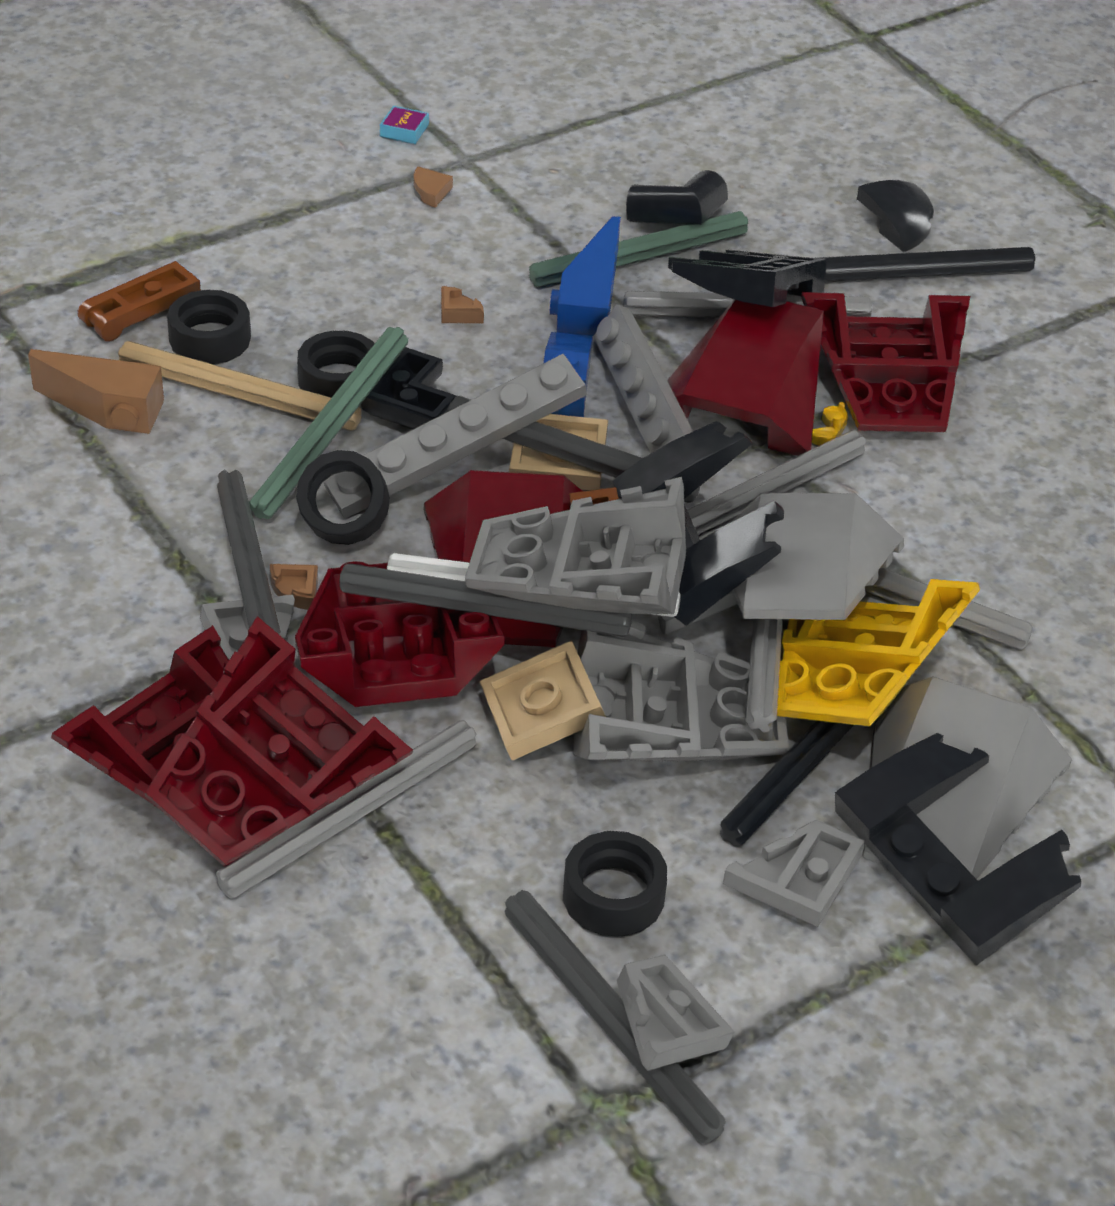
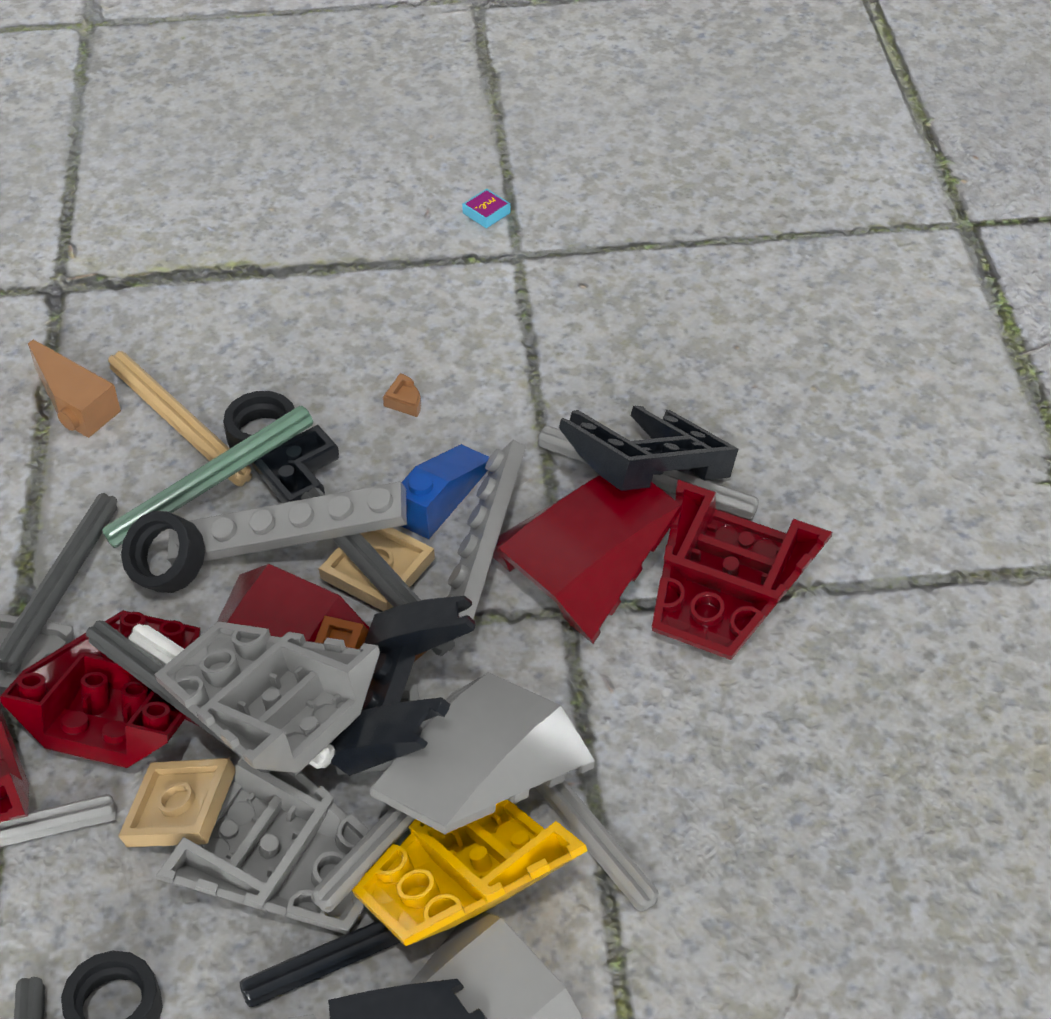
camera: 30 degrees right, 5 degrees up
(137, 300) = (158, 315): dark orange plate -> none
(209, 307) = (196, 374): black tyre -> none
(295, 580) = (88, 610): medium nougat tile -> none
(432, 185) = (465, 273): medium nougat tile -> none
(588, 284) = (516, 406): blue slope -> none
(651, 245) = (595, 385): sand green axle -> none
(677, 204) = (654, 355): black brick -> none
(777, 480) = (529, 659): light grey axle -> none
(835, 420) = (642, 614): yellow piece -> none
(902, 211) = (859, 415): black brick -> none
(929, 263) = (843, 478): black axle -> none

